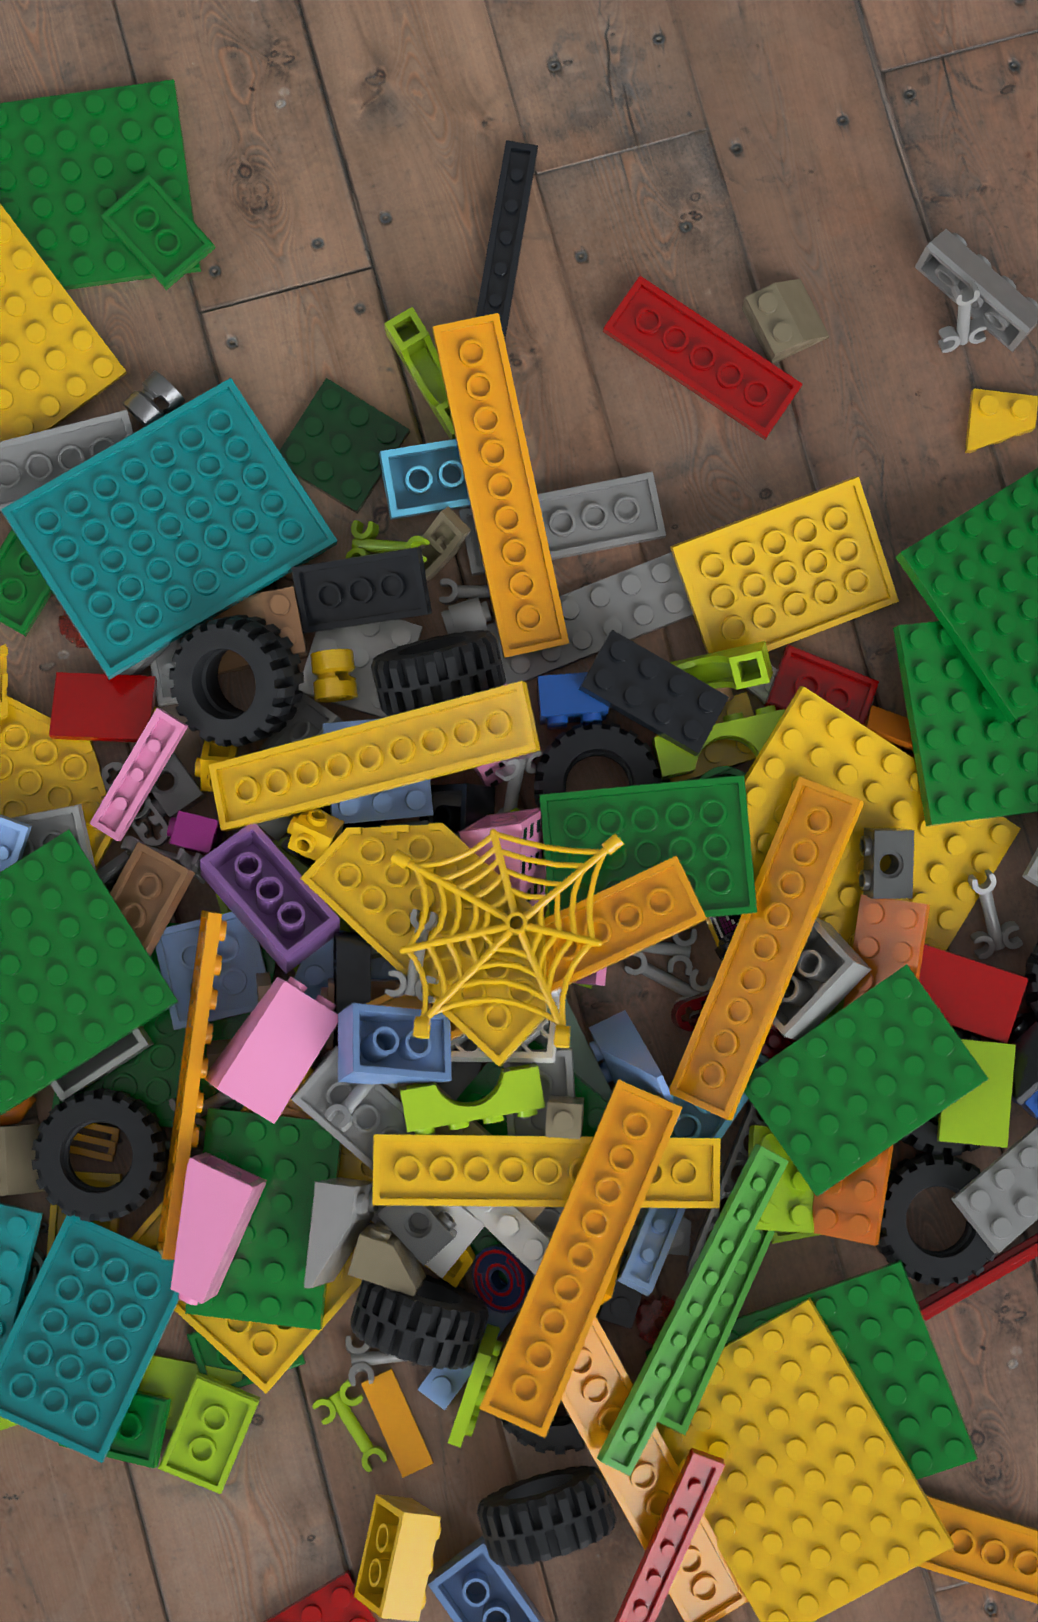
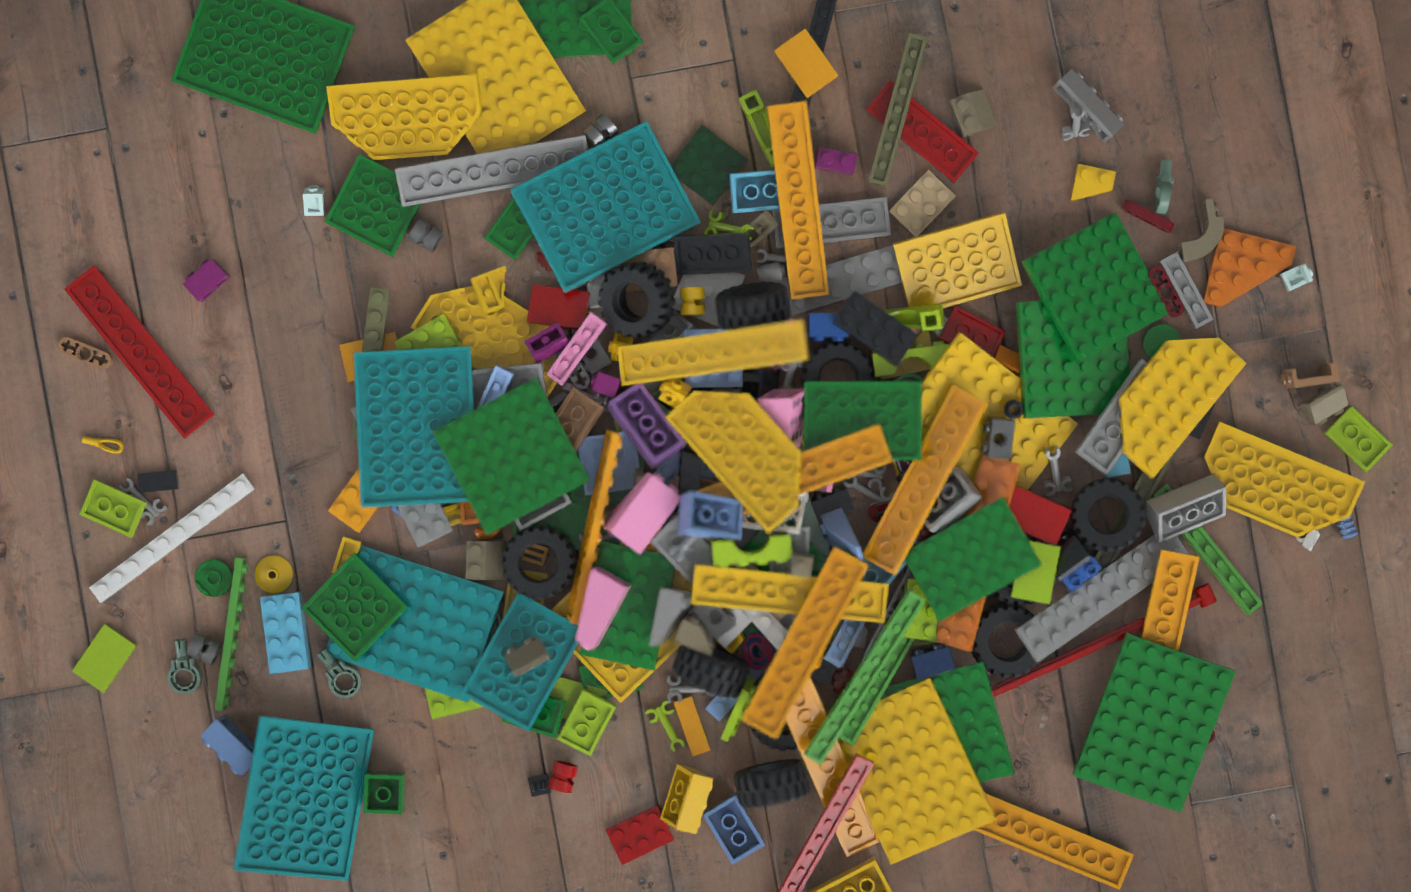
camera: 15 degrees right, 5 degrees up
(85, 769) = (547, 343): none -> magenta brick
(87, 1328) = (526, 657): none -> dark tan slope
(134, 1554) = (539, 785): none -> black tile
(175, 1530) = (562, 777): none -> red wheel
(411, 983) = (724, 482): light grey bar -> none
(494, 259) = (806, 63): none -> light orange tile
(560, 419) = (836, 161): none -> magenta brick
(562, 1032) = (727, 508): yellow animal -> none
(618, 996) = (838, 499): none -> black brick
(657, 322) = (897, 109): none -> olive plate
(714, 478) = (922, 203): none -> tan plate
(808, 1267) = (931, 660): none -> dark blue brick
(916, 815) = (1017, 413): none -> black plate

